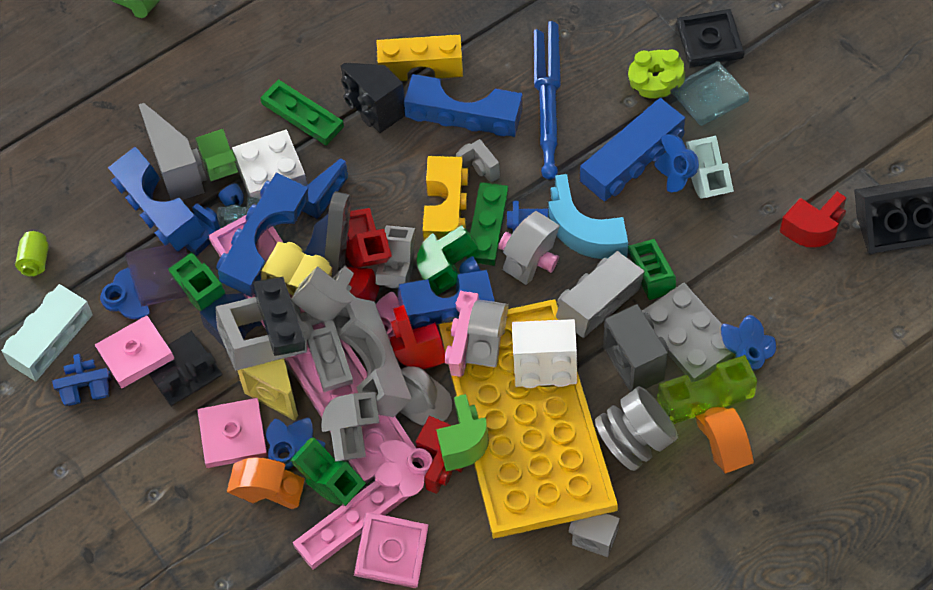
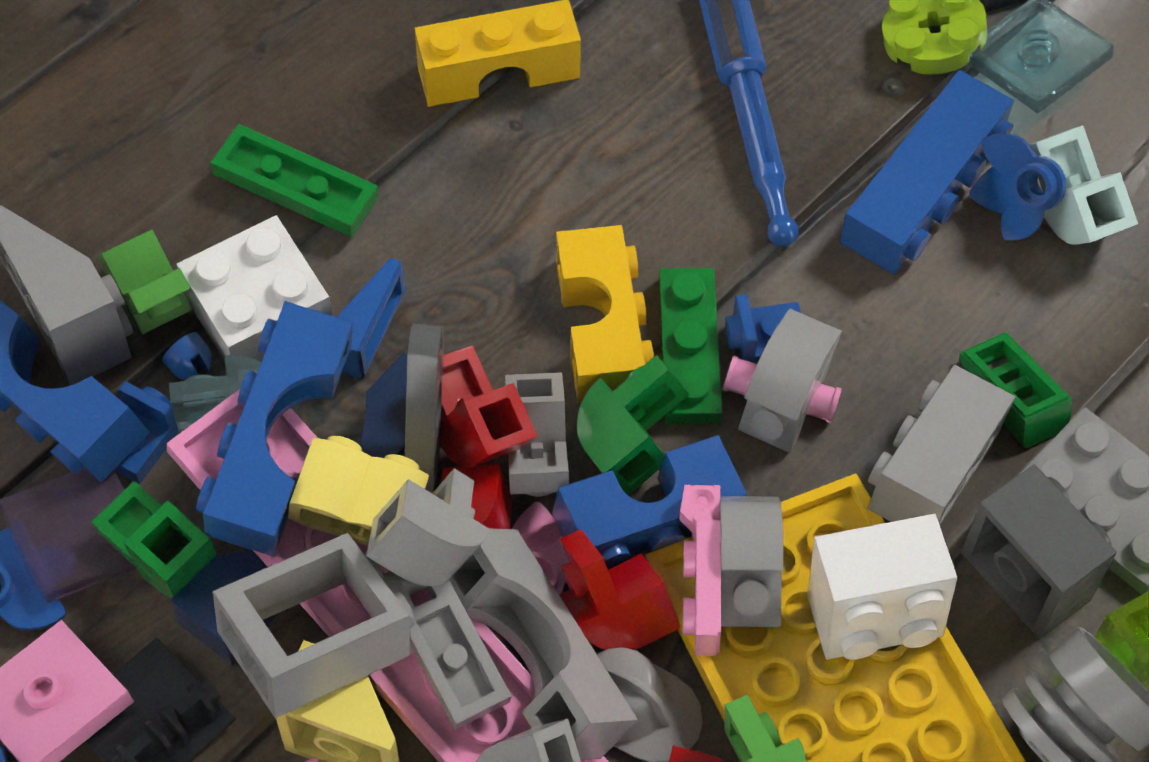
camera: 15 degrees left, 0 degrees up
(279, 316) = (349, 594): black plate -> none
(374, 93) = (428, 127): black slope -> none
(469, 265) = (678, 433): blue hinge -> none
(481, 159) = (657, 226): light grey bracket -> none
(495, 114) = (657, 139): blue arch -> none
(581, 233) = (877, 340): medium azure arch -> none

